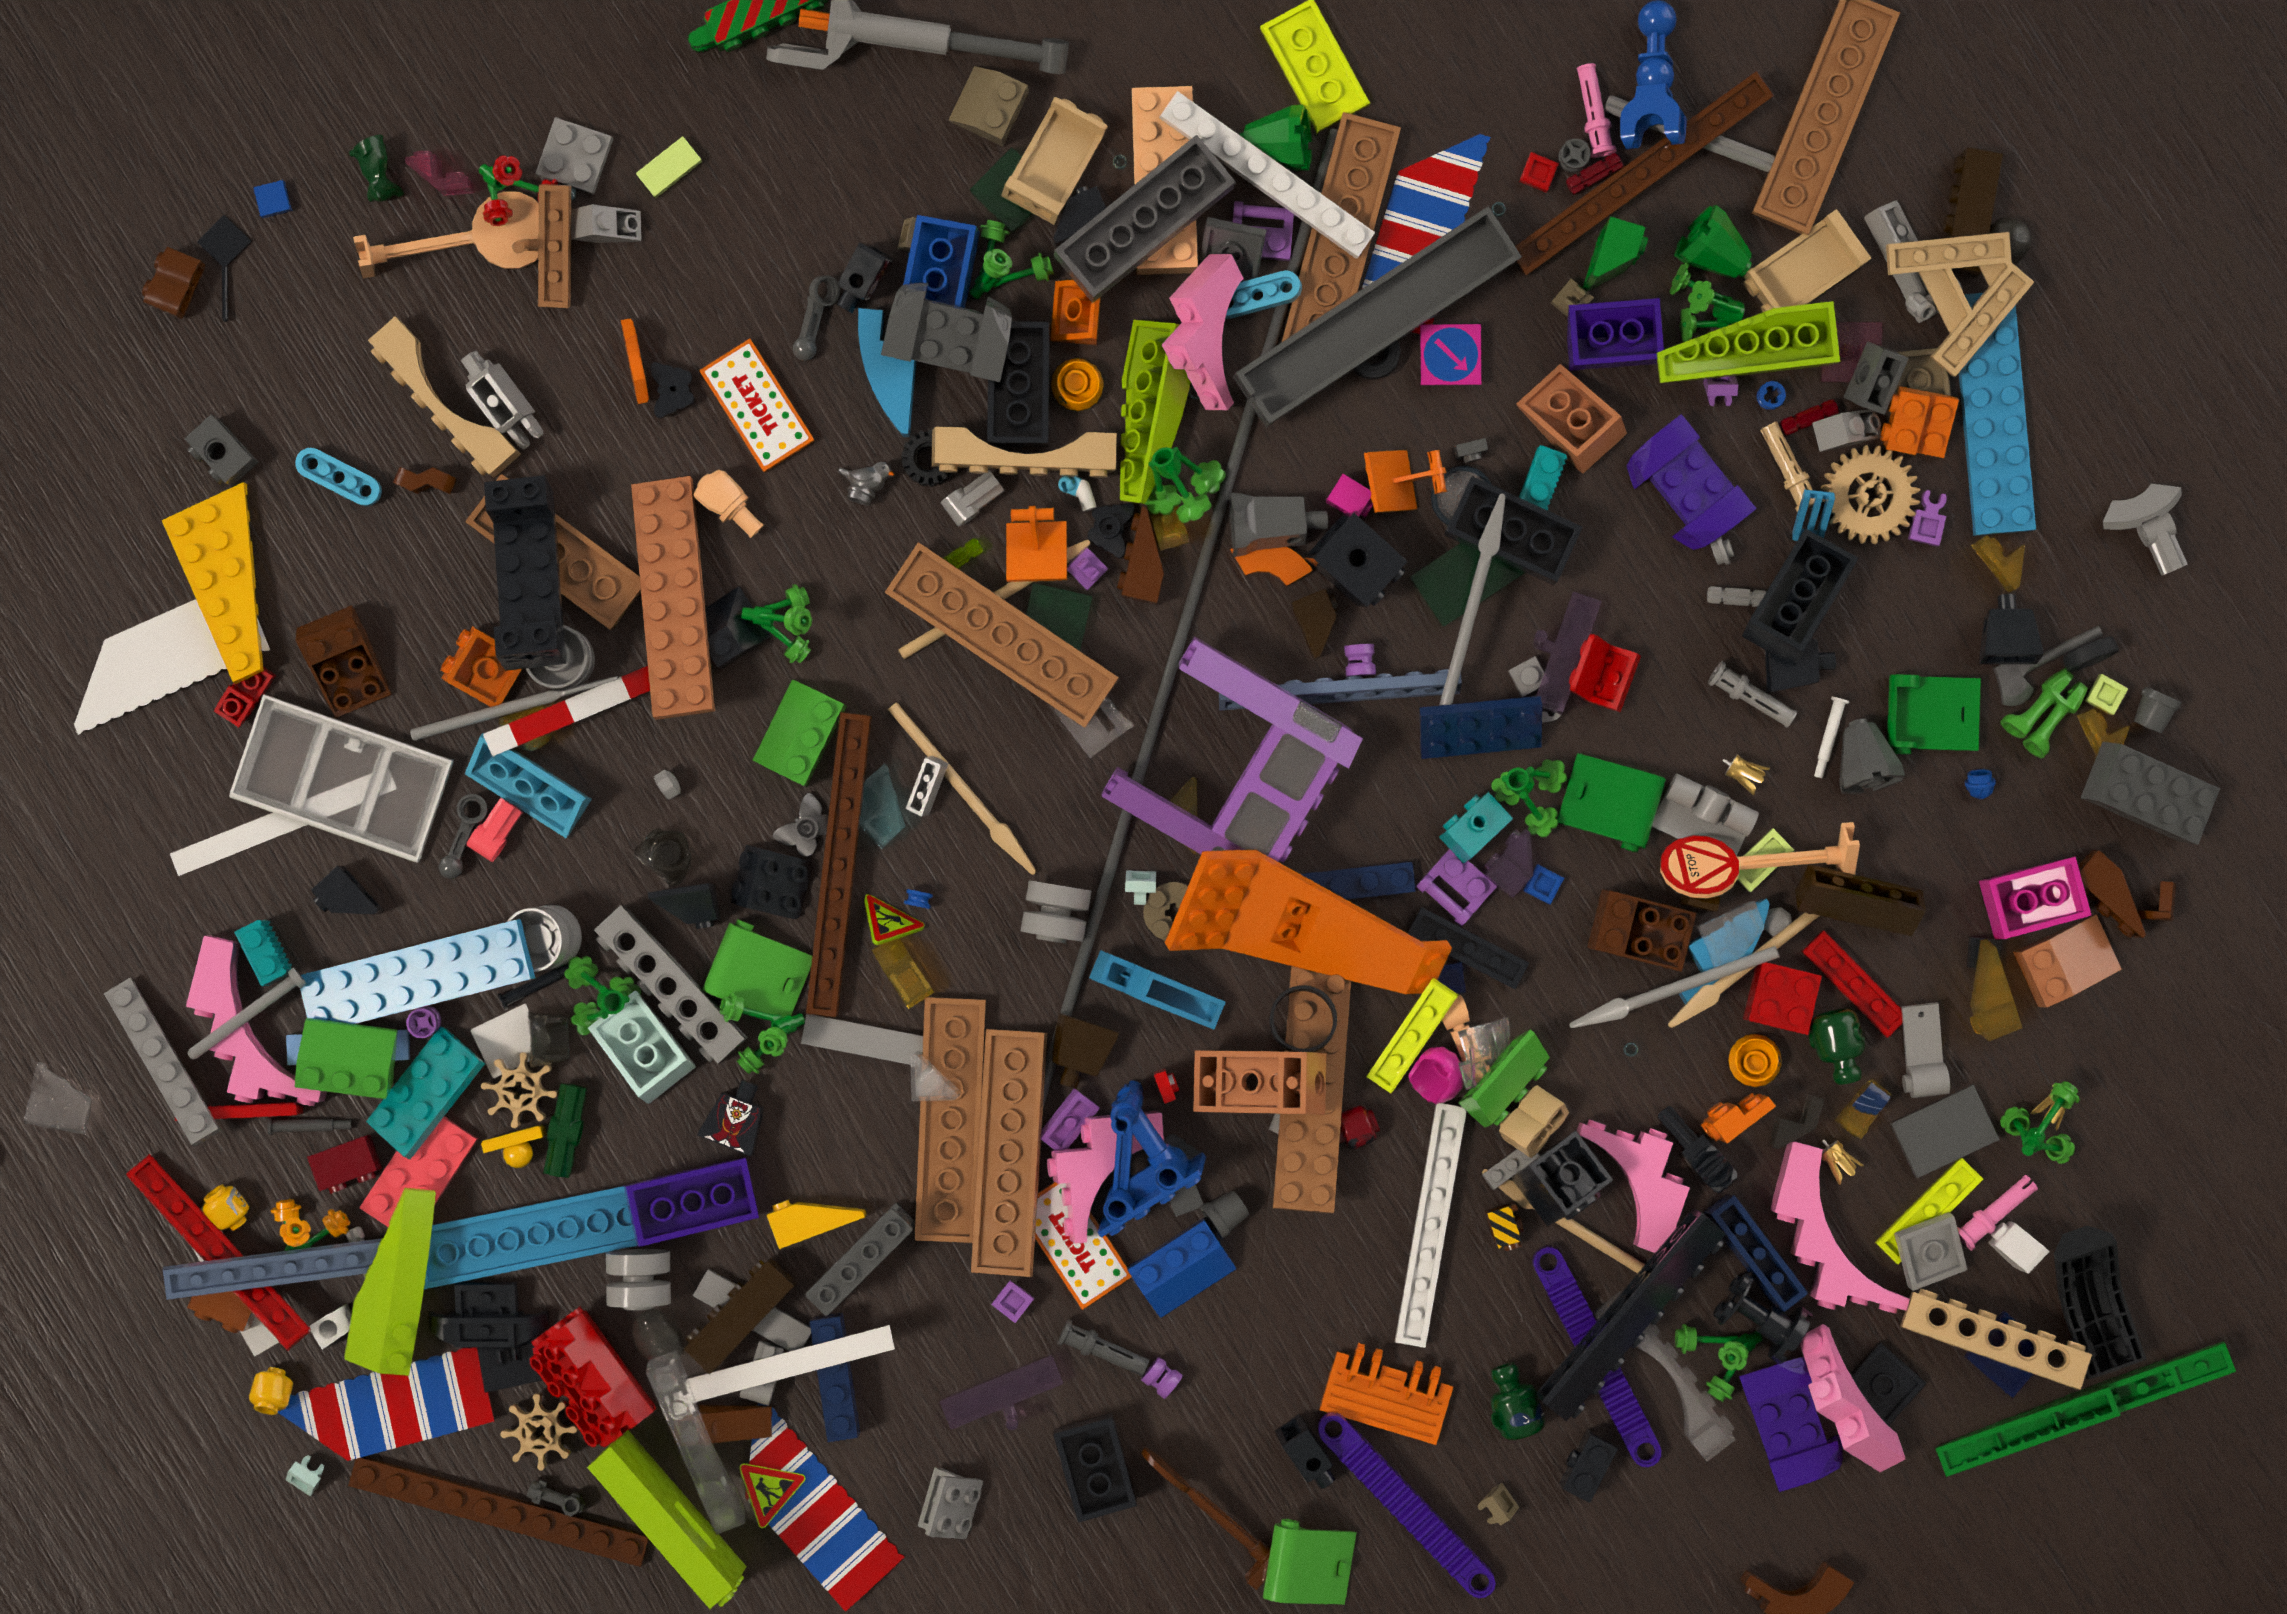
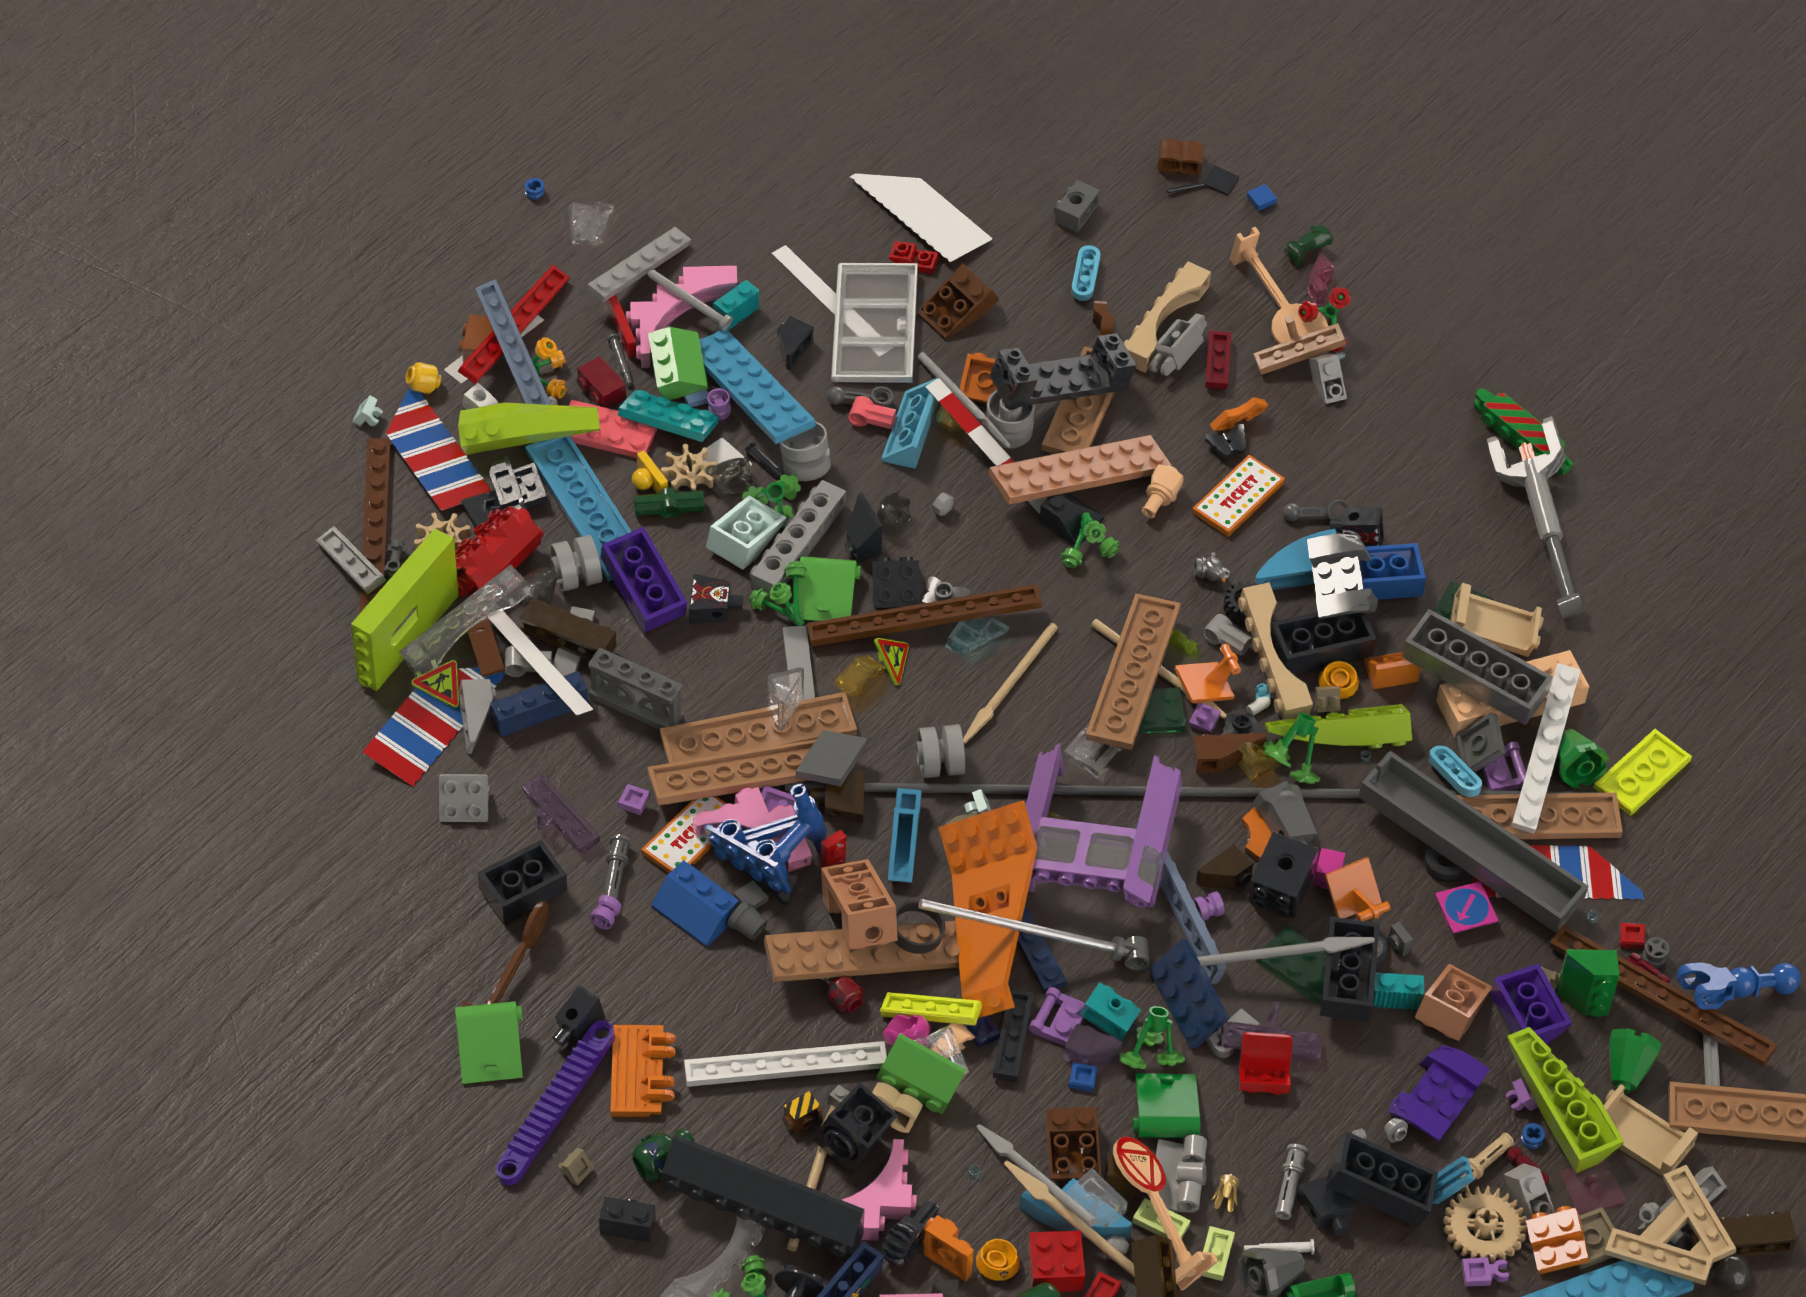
camera: 70 degrees right, 35 degrees down
(219, 566) = (992, 224): yellow wing -> none
(225, 1207) = (546, 324): yellow head -> none
(533, 354) = (1218, 359): none -> dark red plate
(544, 1555) = (350, 560): none -> light grey tile
(574, 155) = (1368, 352): light grey plate -> none
(669, 167) = (1385, 406): yellowish green tile -> none
(799, 733) = (1006, 572): bright green slope -> none
(804, 1220) = (648, 652): yellow slope -> none
(818, 1456) = (475, 706): none -> light grey slope
(918, 898) = (917, 672): blue bush -> none
(927, 786) = (1003, 655): light grey piece -> none
(989, 104) = (1517, 581): dark tan slope -> none
(997, 262) = (1404, 596): bright green plant -> none
(1033, 1049) = (831, 758): none -> dark grey tile
(1106, 409) = (1327, 699): none -> dark tan tile
(1197, 341) = (1401, 731): bright pink arch -> none
(1398, 771) = (1133, 949): none -> flat silver piece
(1577, 1321) = (705, 1218): dark purple gear -> none
(1597, 124) = (1700, 955): bright pink pin -> none
(1725, 309) = (1587, 1046): plant -> none
(1818, 811) = (1220, 1243): none -> yellowish green plate
(1876, 377) = (1579, 1194): dark grey brick -> none

